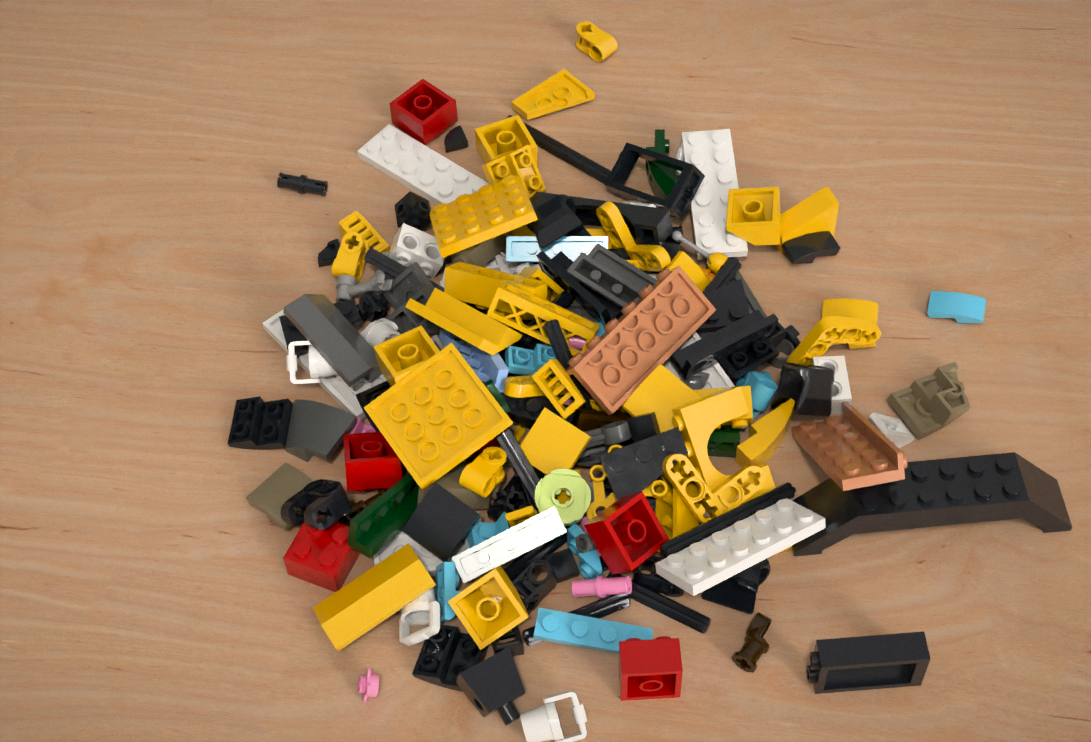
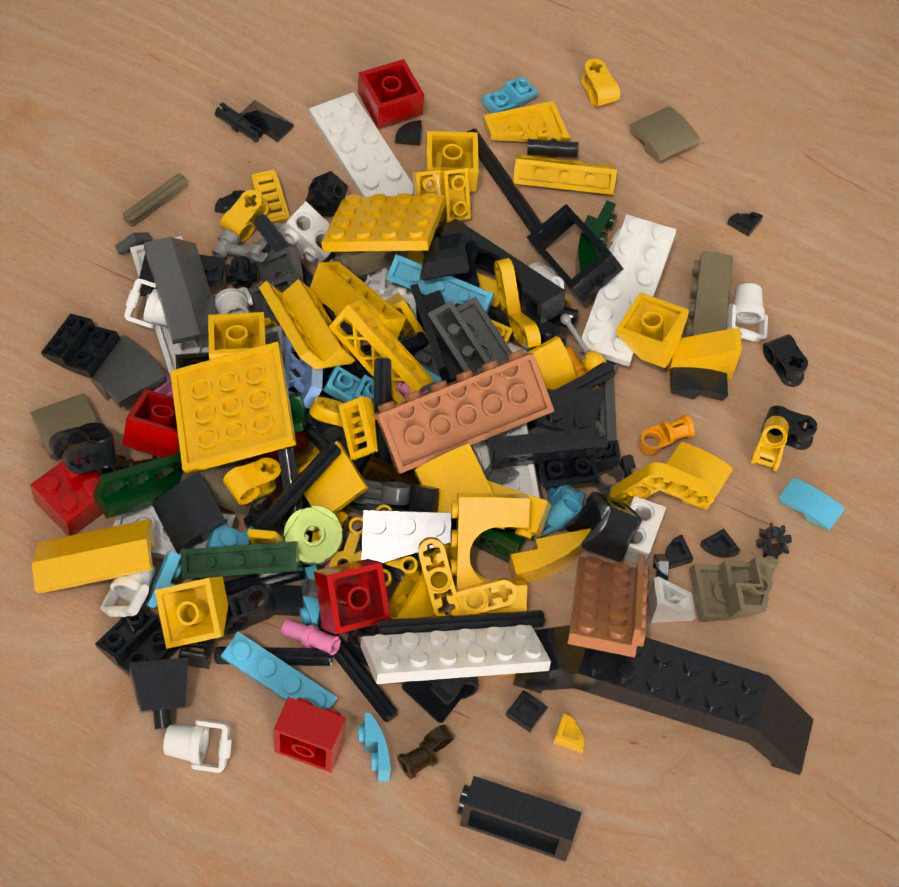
camera: 15 degrees right, 5 degrees up
(261, 275) = (155, 199): none -> dark tan axle
(261, 316) = (131, 241): none -> dark grey tile
(335, 176) = (273, 124): none -> black slope
(368, 684) = (50, 636): bright pink plate -> none
(526, 77) = (512, 96): none -> medium azure slope
(530, 460) = (298, 487): none -> black axle
(583, 106) = (552, 148): none -> black pin
(605, 124) = (564, 174): none -> yellow fence
(670, 61) = (664, 133): none -> dark tan slope
(707, 652) = (376, 745): none -> medium azure slope
(774, 107) = (746, 222): none -> black tile
(780, 170) = (709, 293): none -> dark tan brick
(801, 299) = (666, 434): none -> light orange connector
(818, 573) = (526, 711): none -> black tile
(819, 173) = (748, 309): none -> white piece
(864, 405) = (661, 565): none -> black tile
(865, 577) = (569, 734): none -> yellow tile
(869, 199) = (786, 359): none -> black piece
(870, 392) = (678, 553): none -> black tile
(899, 277) = (770, 447): none -> yellow piece
(901, 370) = (720, 545): none -> black tile
(902, 254) = (796, 430): none -> black piece
(945, 353) = (770, 533): none -> black gear

